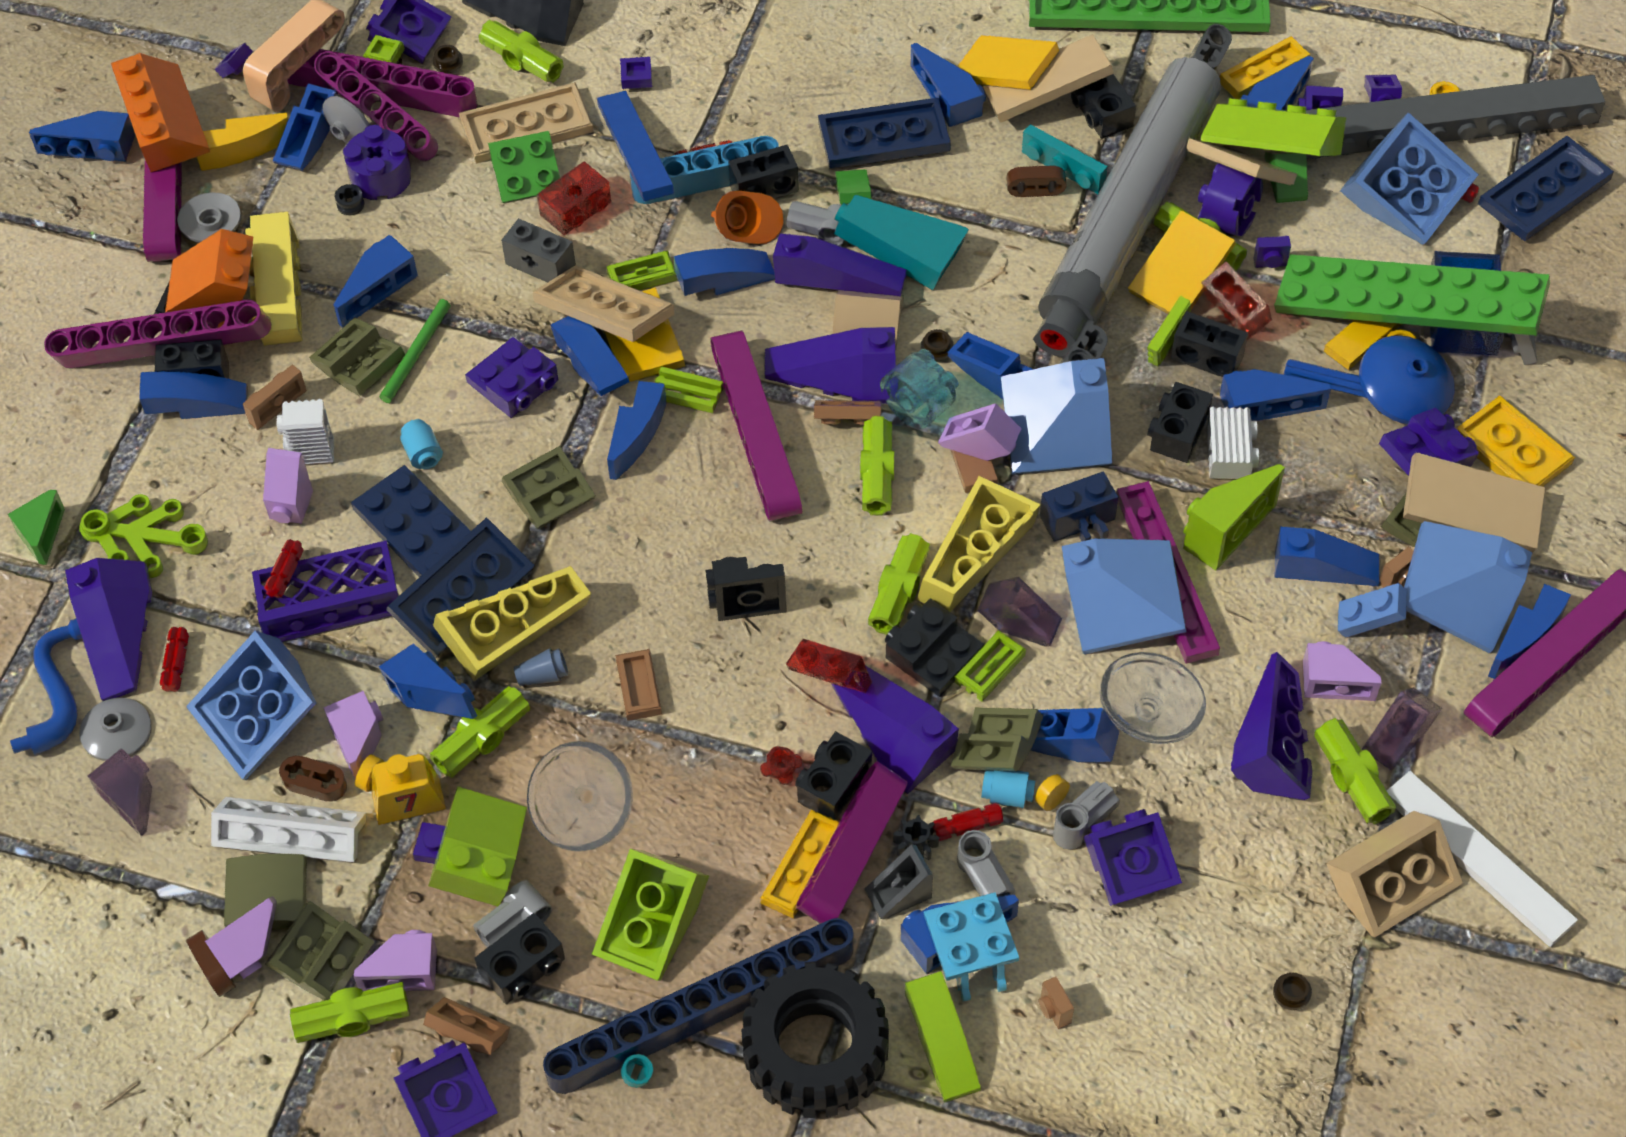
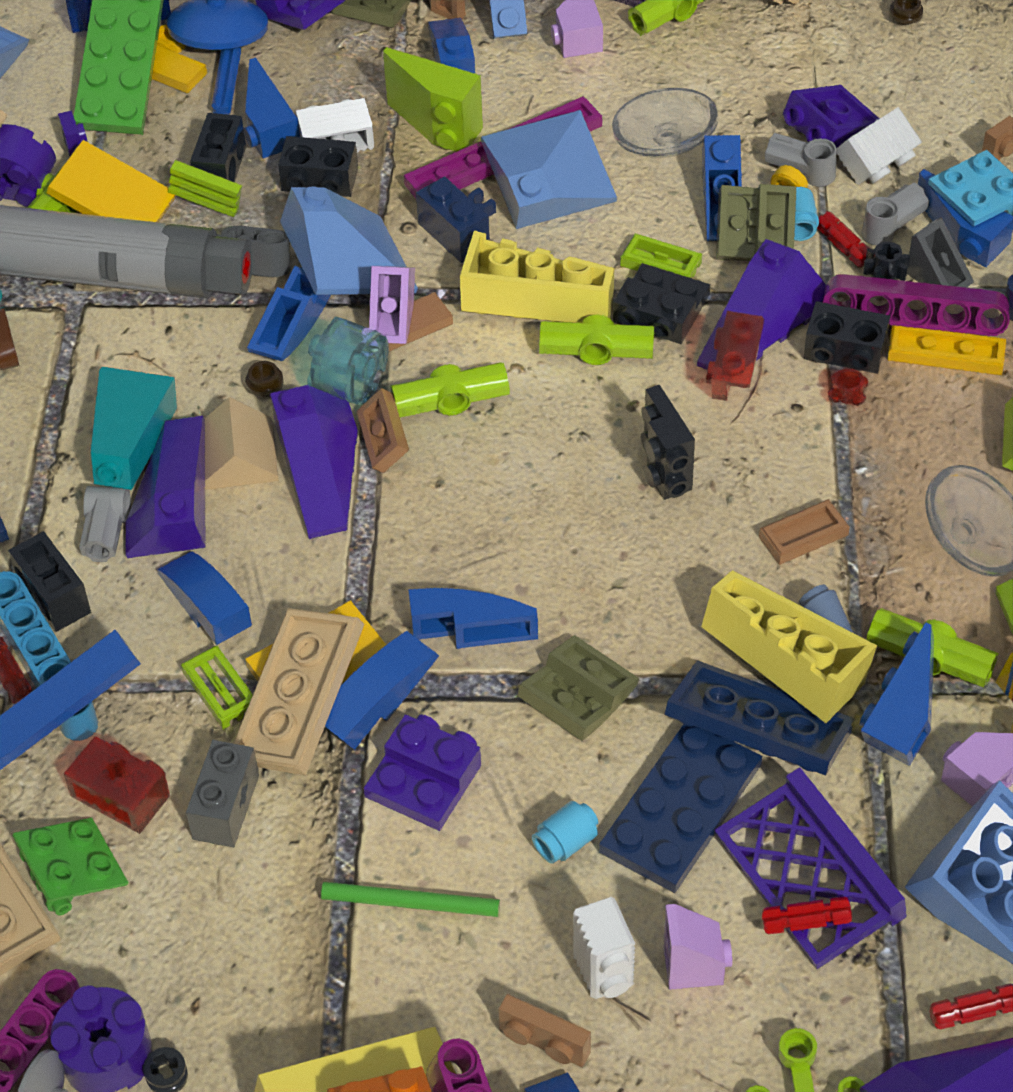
camera: 105 degrees left, 5 degrees down
(357, 356) = (440, 963): olive slope -> none
(376, 276) = (309, 979): blue slope -> none
(690, 385) = (392, 566): lime tile -> none
(748, 217) = (116, 593): orange piece -> none
(756, 426) = (424, 509): magenta beam -> none
(852, 183) = (46, 495): bright green tile -> none
(1019, 611) = (597, 241): slope -> none
(1073, 882) = (878, 146): none -> white brick
(1236, 300) = (154, 140): clear red brick -> none
(1271, 739) = (677, 49): dark purple wedge -> none

